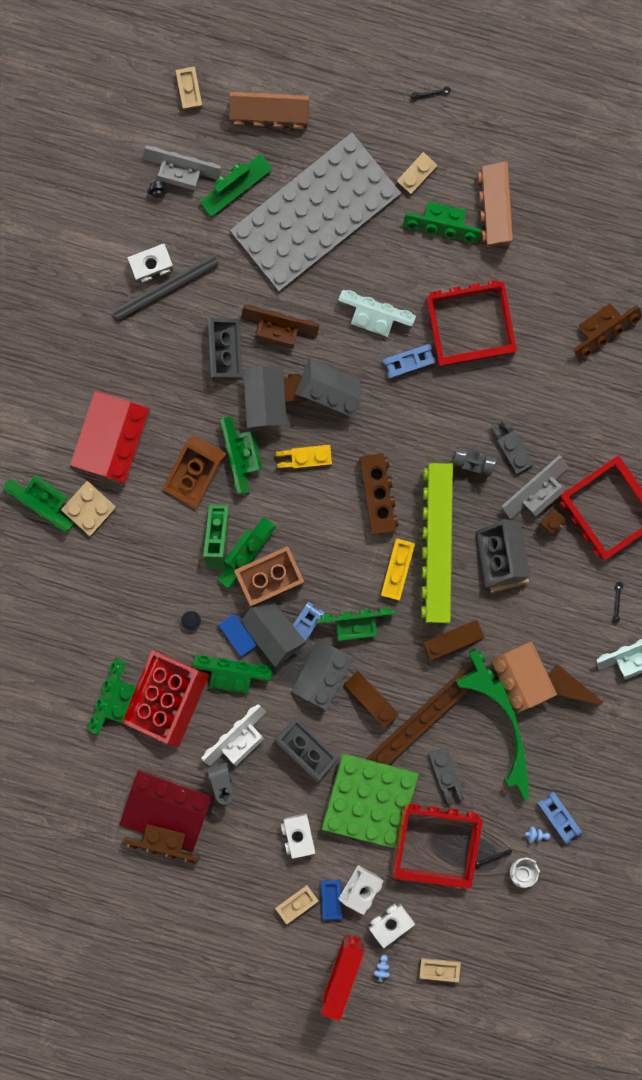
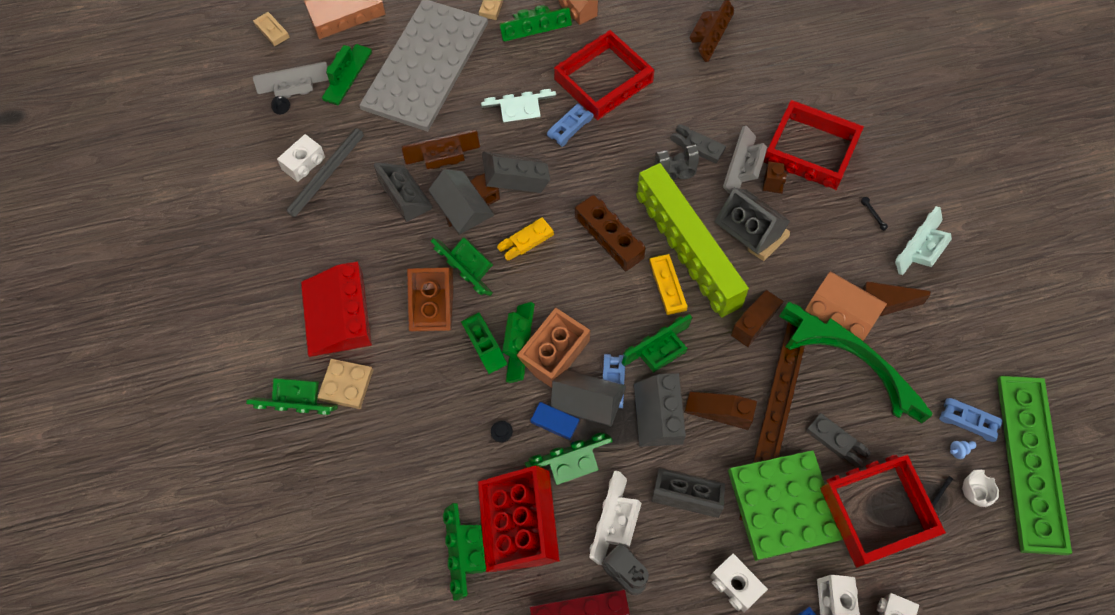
camera: 25 degrees left, 25 degrees down
(580, 875) = (1033, 466): none -> bright green plate

